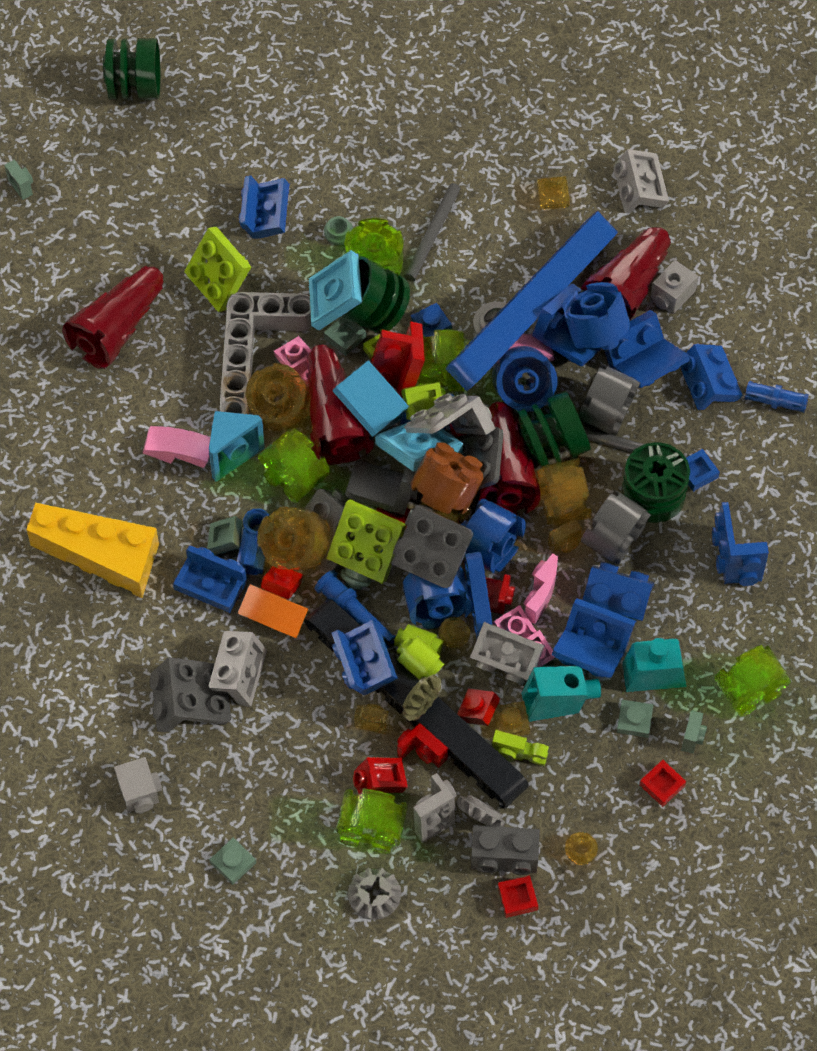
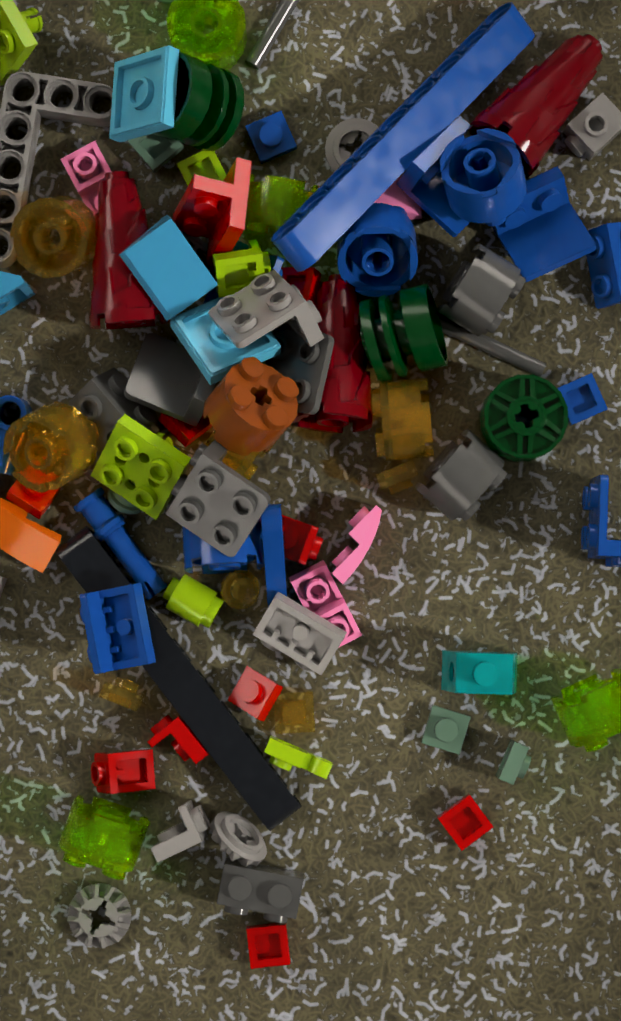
camera: 10 degrees right, 25 degrees up
(293, 465) = (63, 338): clear neon green brick -> none
(419, 658) = (188, 633): lime brick -> none
(421, 697) = (181, 697): olive gear -> none
(494, 534) = (301, 469): blue brick -> none
(557, 692) = (342, 693): teal torso -> none
(585, 839) = (359, 902): clear yellow plate -> none
(594, 639) = (408, 630): blue bracket -> none
(617, 591) = (453, 556): blue bracket -> none

